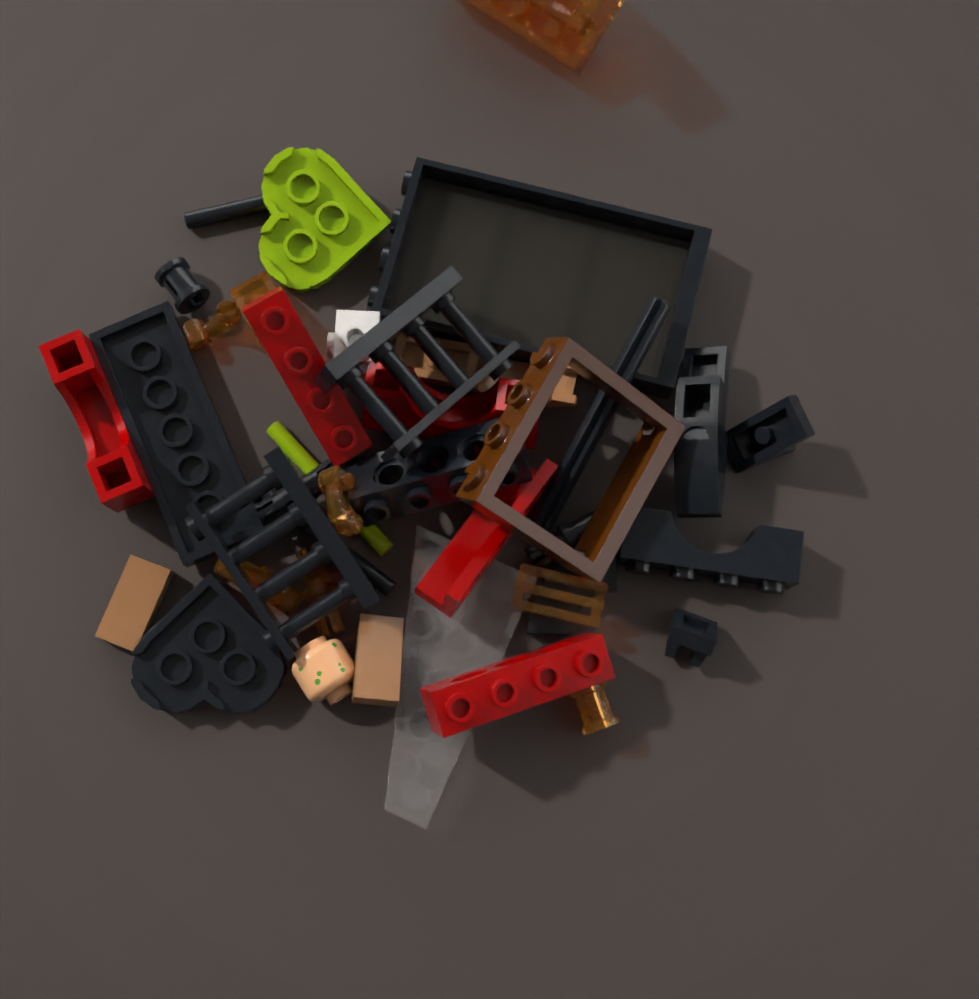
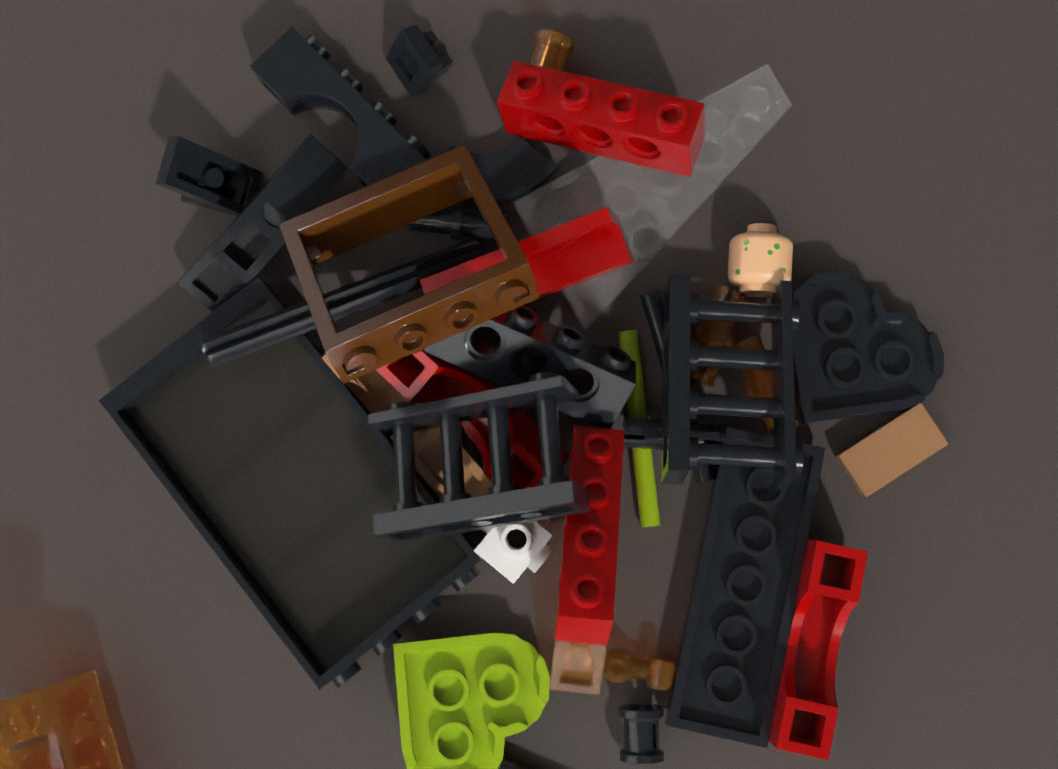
camera: 140 degrees left, 5 degrees up
(339, 512) = (637, 408): clear orange arm -> none
(378, 660) = (707, 233): medium nougat tile -> none
(596, 603) = (481, 141): clear orange tile -> none

